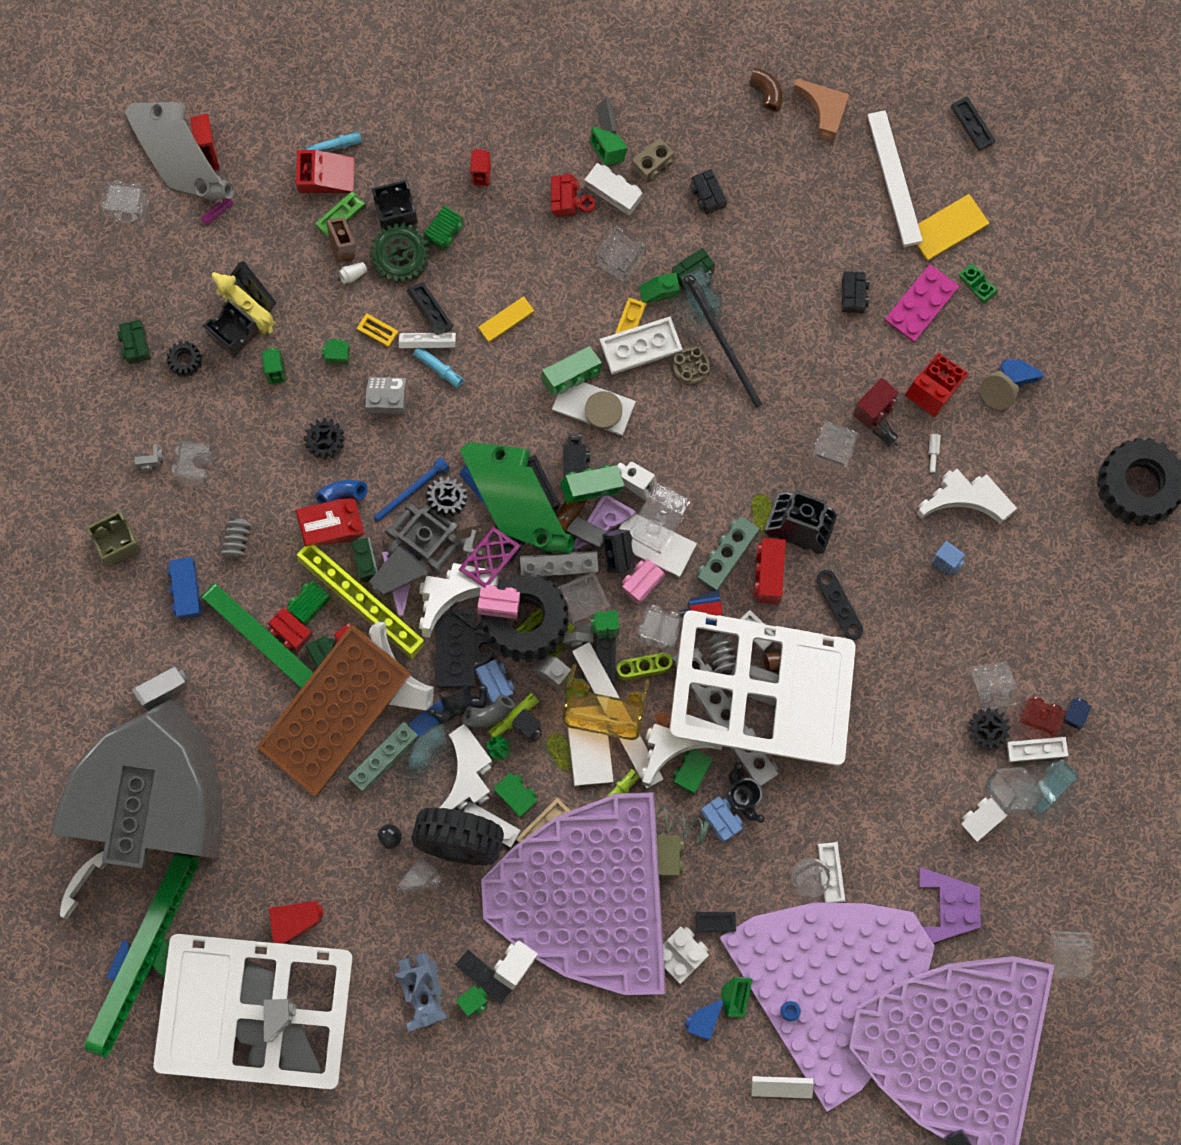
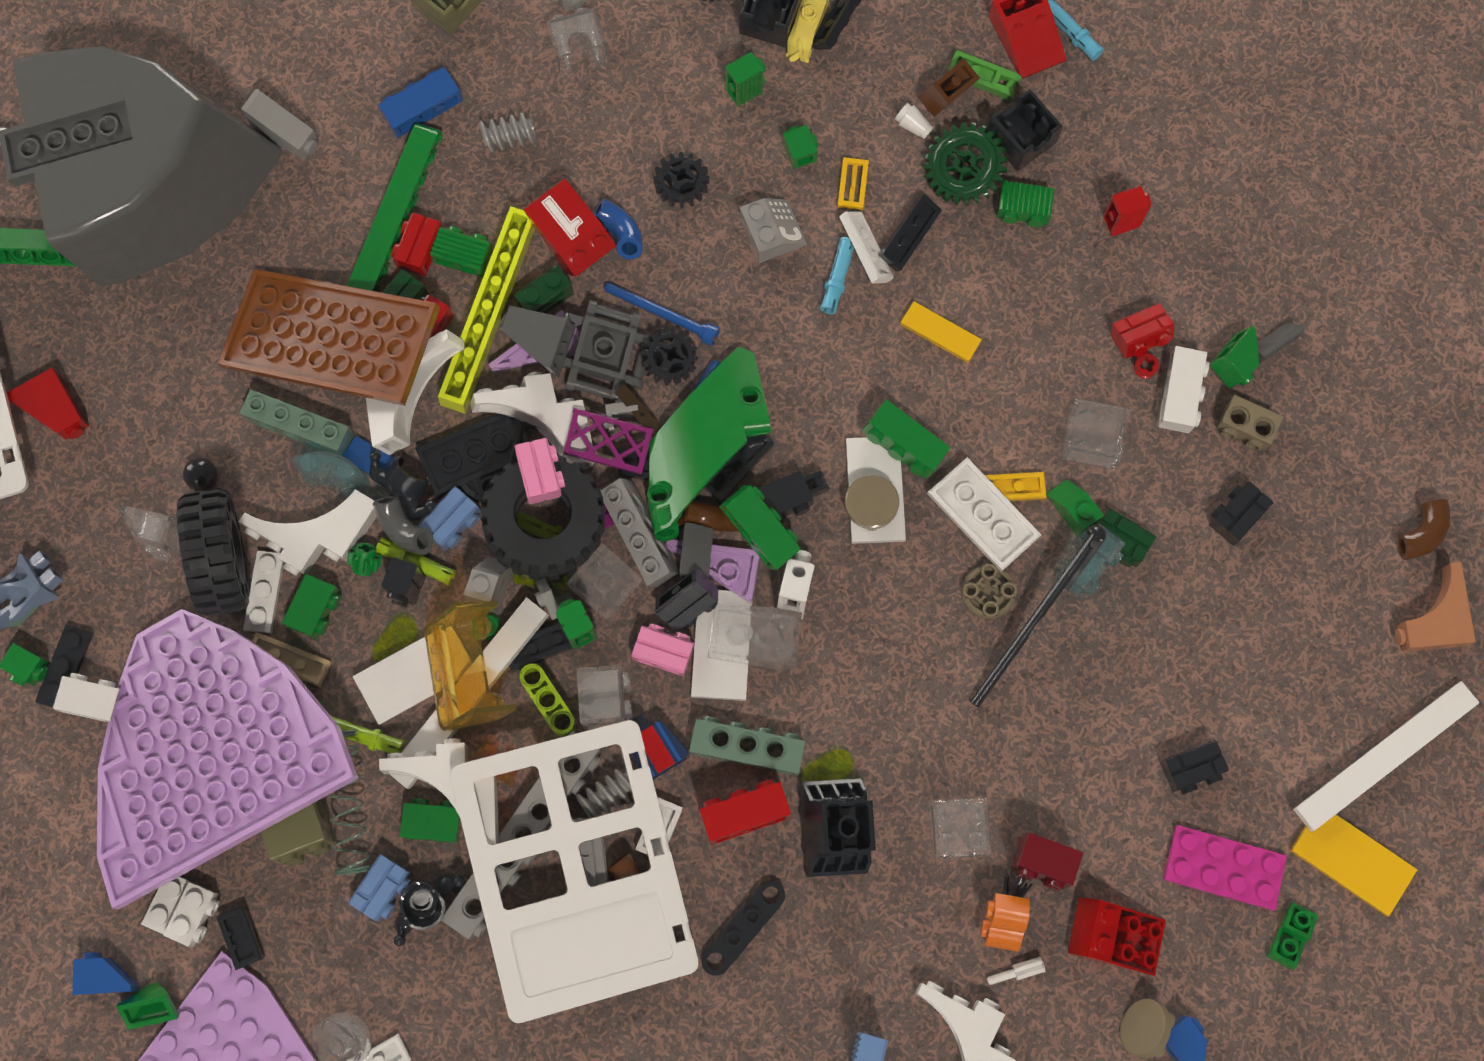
camera: 65 degrees right, 0 degrees up
(902, 443) = (1005, 922): none -> orange brick

